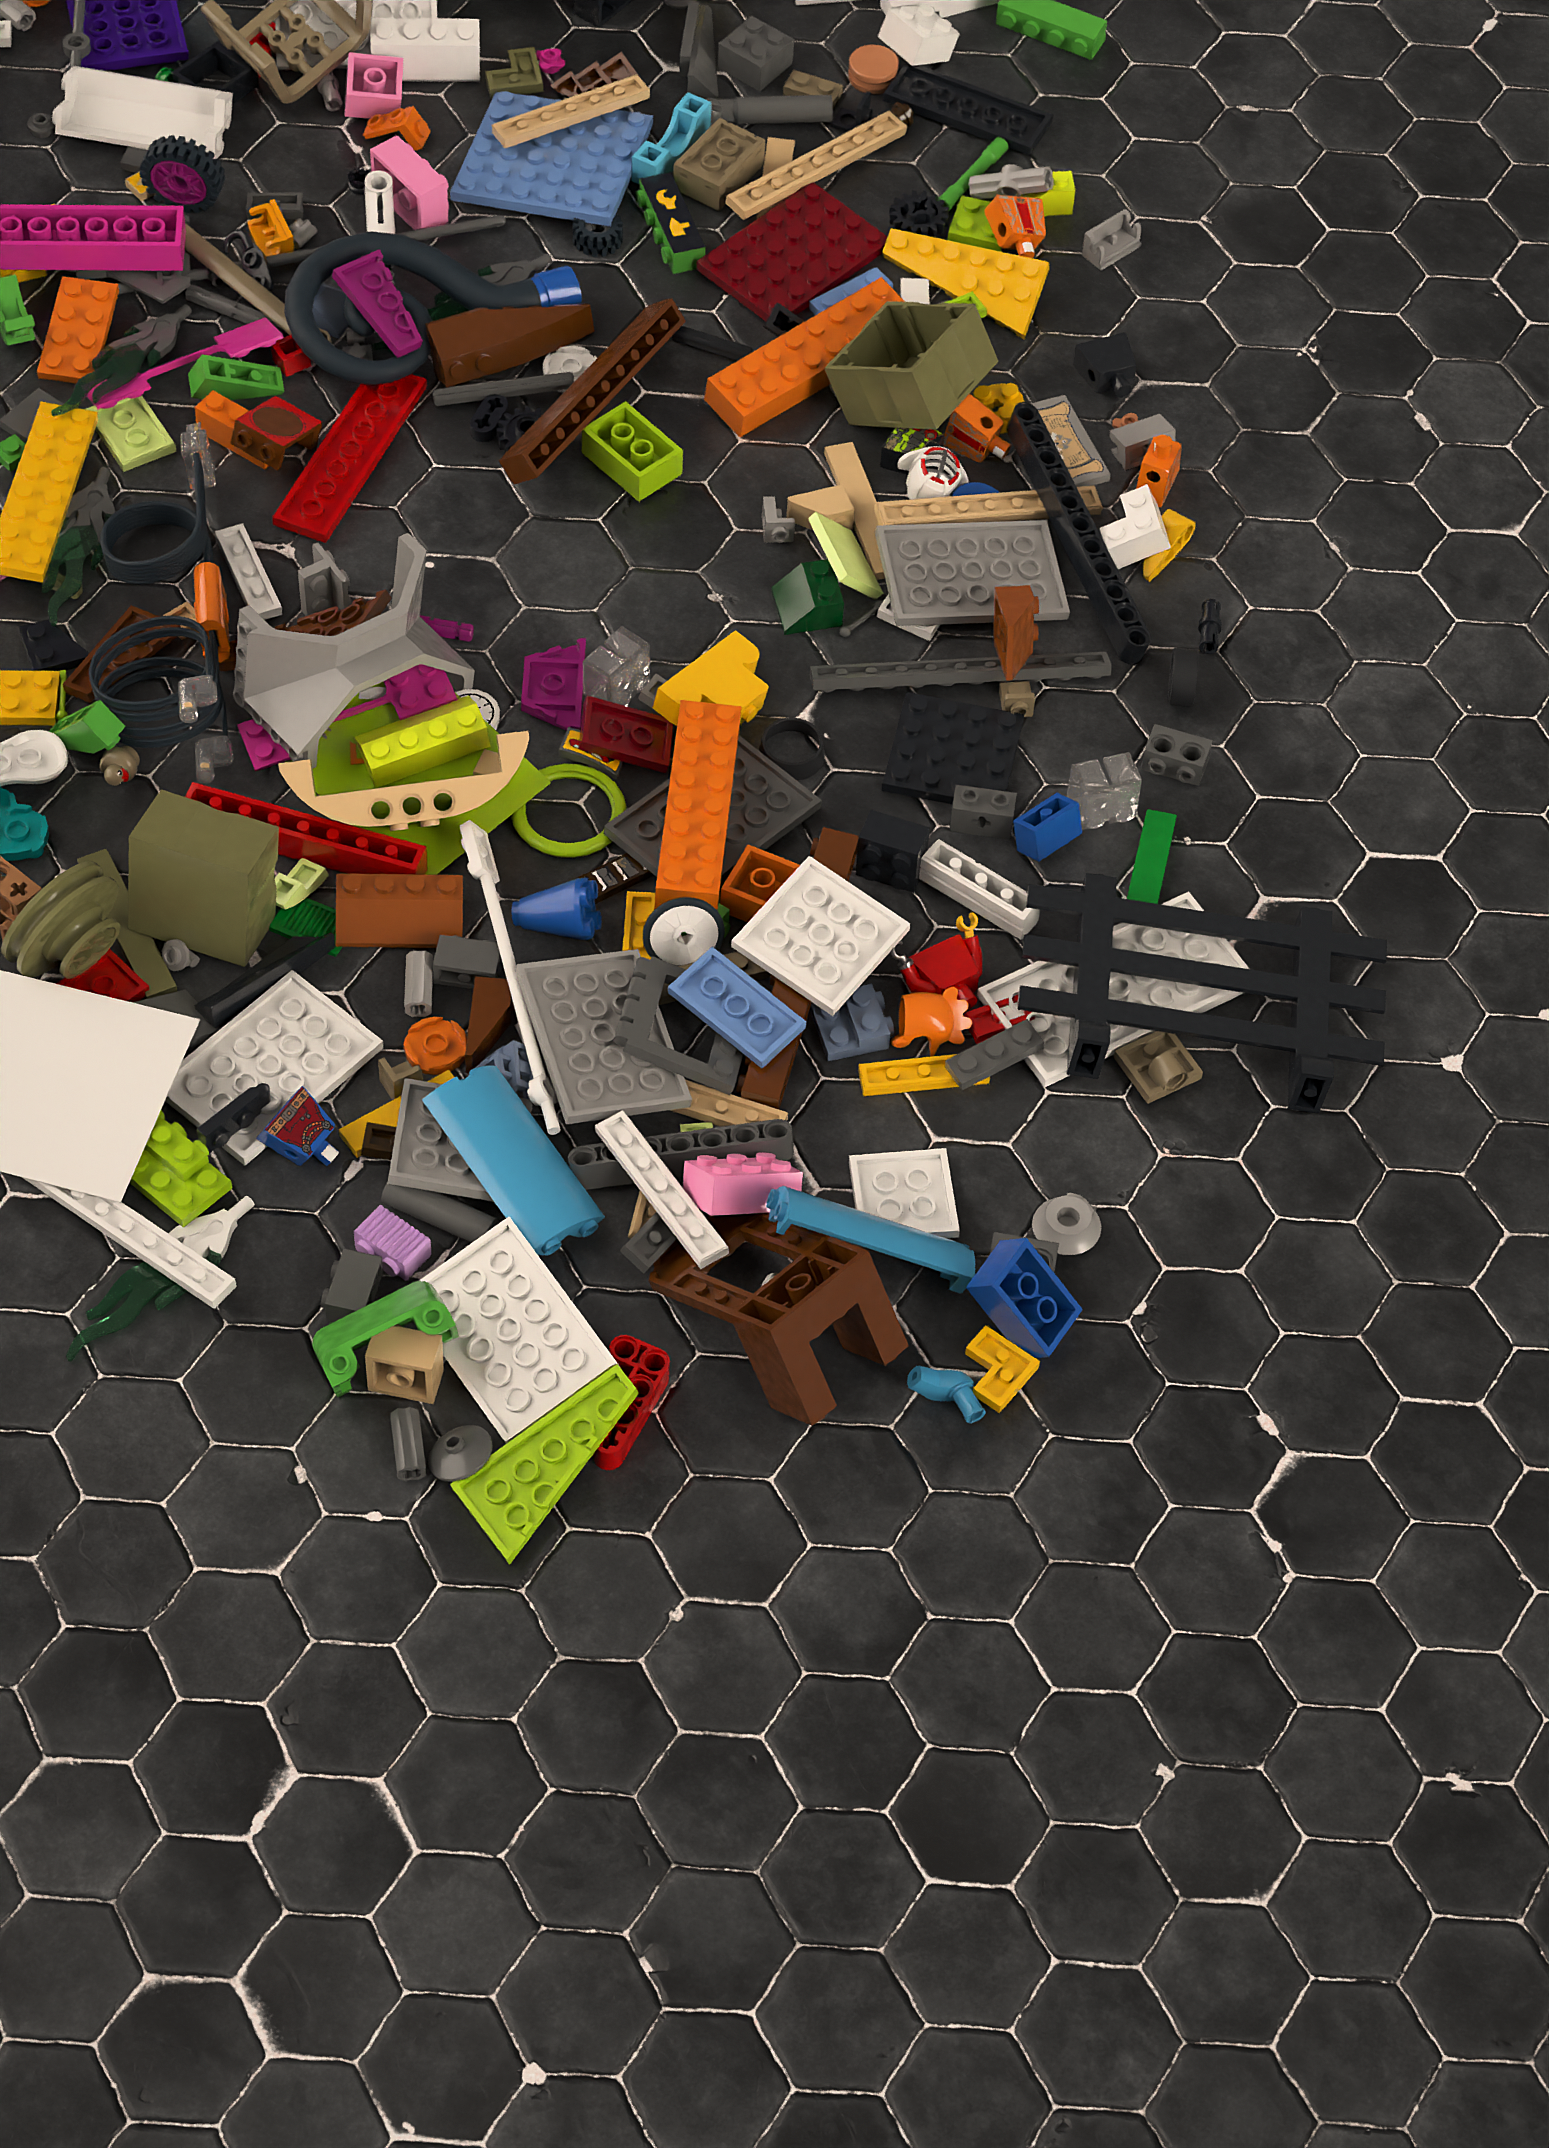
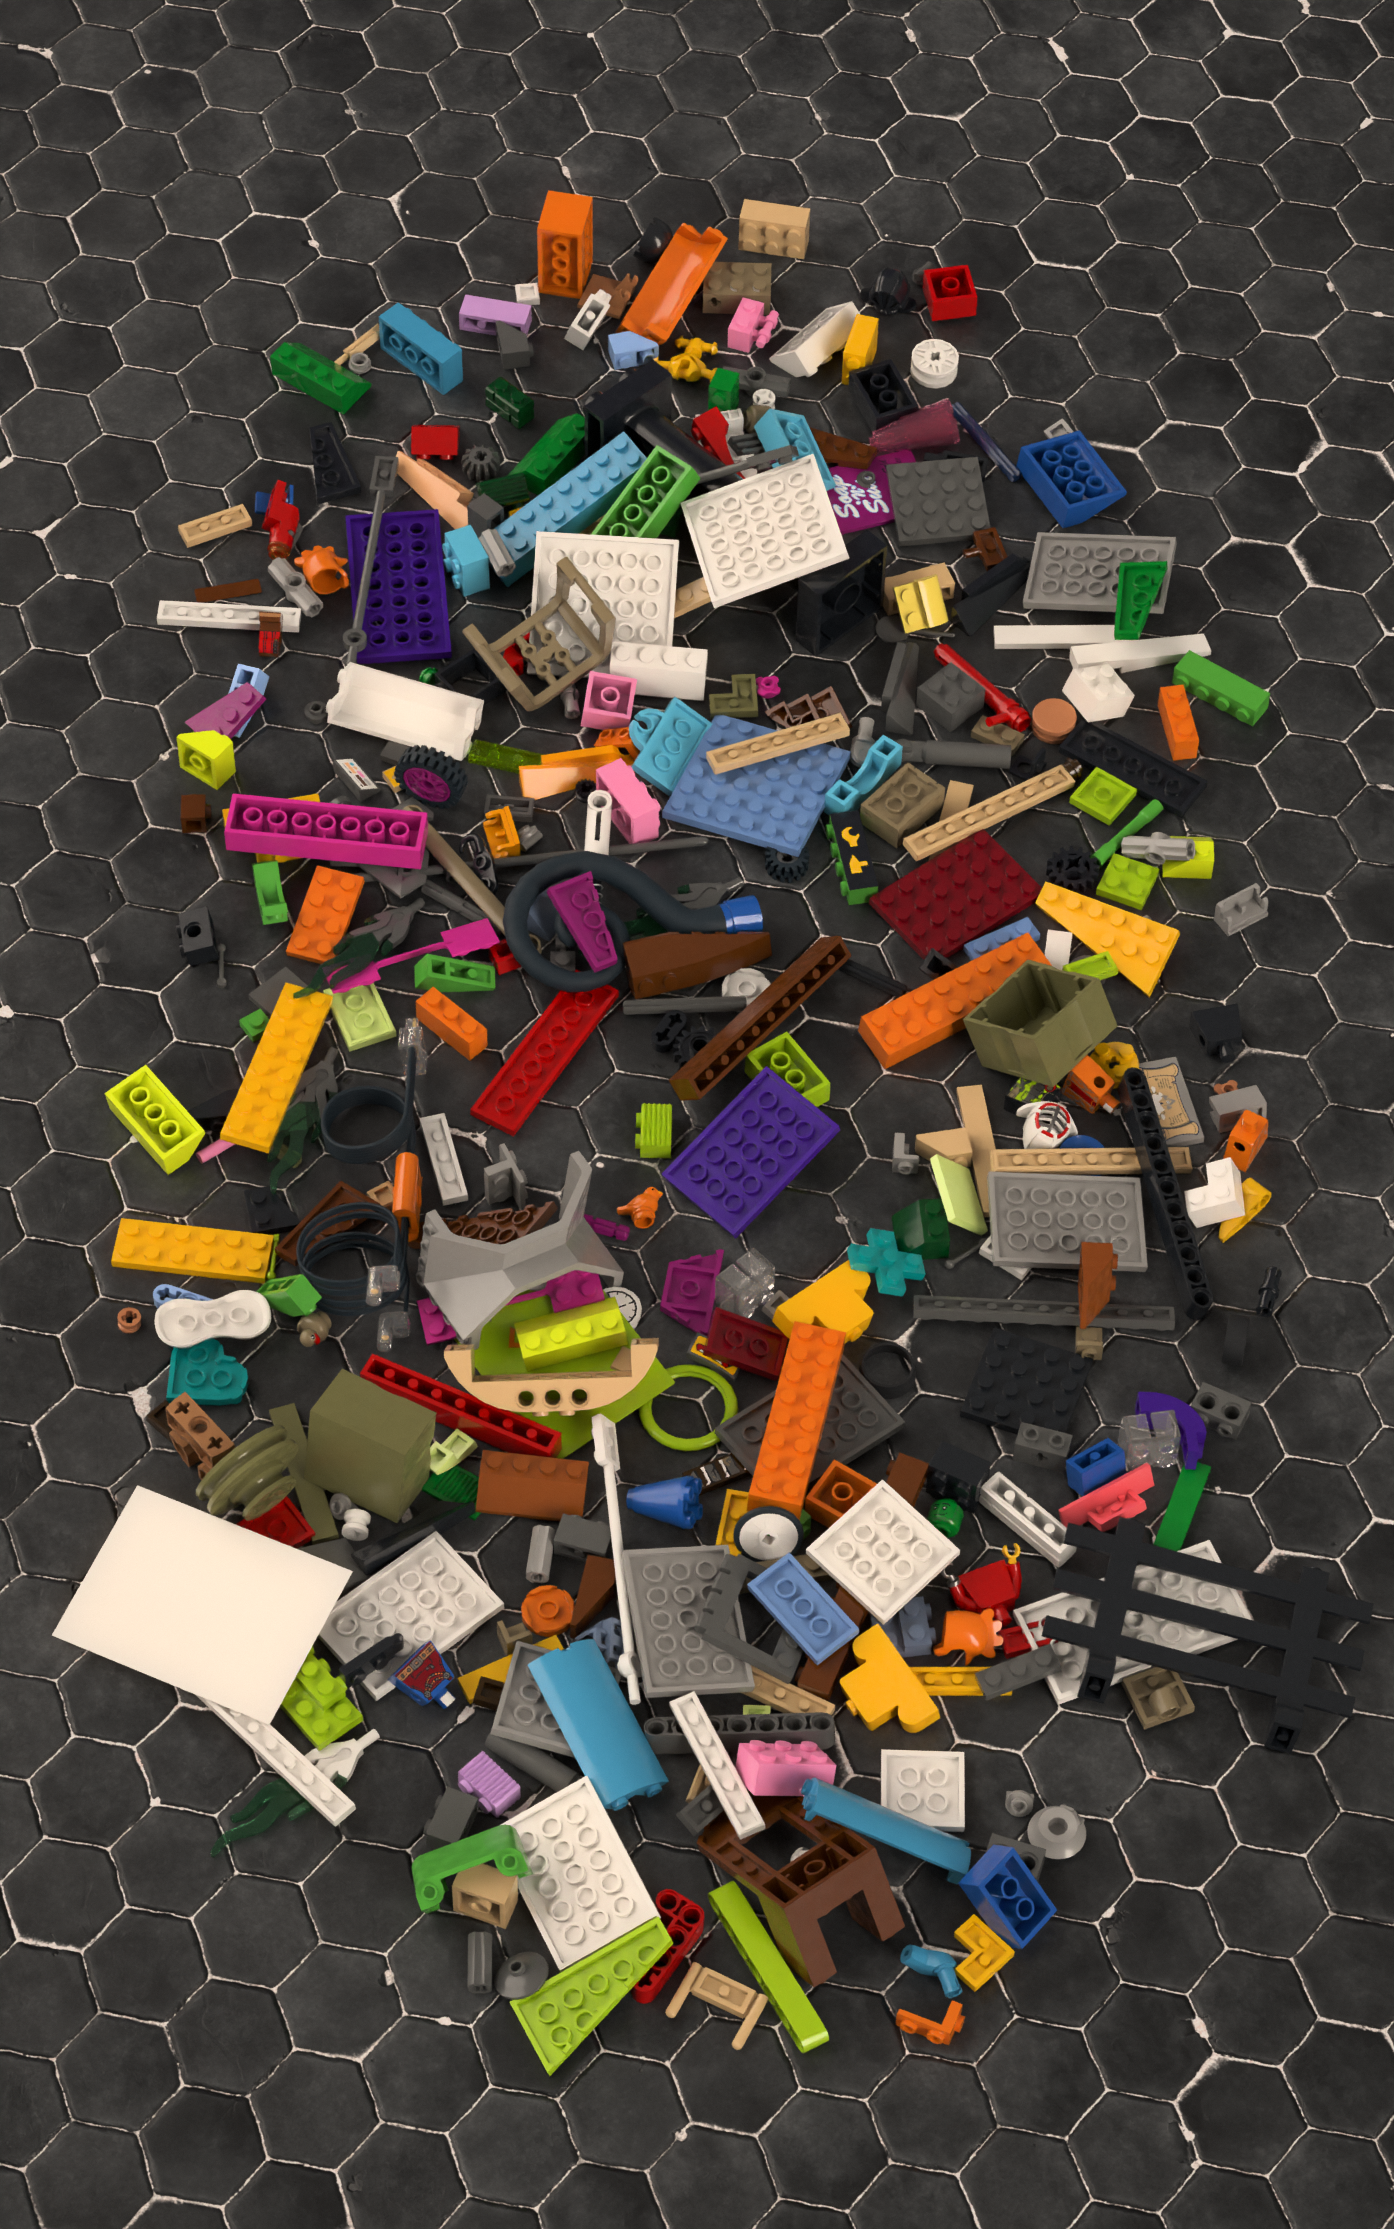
camera: 10 degrees right, 0 degrees up
(93, 187) = (355, 778): none -> slope
(196, 973) = (356, 1524): none -> white wheel
(264, 155) = (502, 756): none -> clear neon green tile
(272, 429) = (481, 1028): reddish brown panel -> none
(330, 161) = (563, 770): none -> light orange wedge
(445, 121) = (666, 743): none -> medium azure plate
(485, 603) = (642, 1208): none -> orange animal
(489, 521) = (656, 1130): none -> lime brick
(602, 531) = (750, 1152): none -> dark purple plate
(663, 106) = (862, 742): none -> light grey arm
(703, 1447) = (722, 1993): none -> tan plate
(753, 1411) = (768, 1967): none -> lime beam
(769, 629) = (886, 1262): none -> teal plate
(817, 61) = (1006, 708): none -> red cylinder
(844, 1085) = (885, 1686): none -> yellow brick
(887, 892) = (946, 1517): none -> green head
(940, 139) = (1103, 796): none -> lime plate
(955, 1459) = (931, 2030): none -> orange bracket
(1010, 59) = (1178, 722): none -> orange brick
(1017, 223) = (1158, 888): orange torso -> none
(1017, 1197) = (1019, 1802): none -> light grey plate
(1071, 860) = (1111, 1501): none -> coral bracket
(1150, 769) = (1189, 1422): none -> dark purple arch

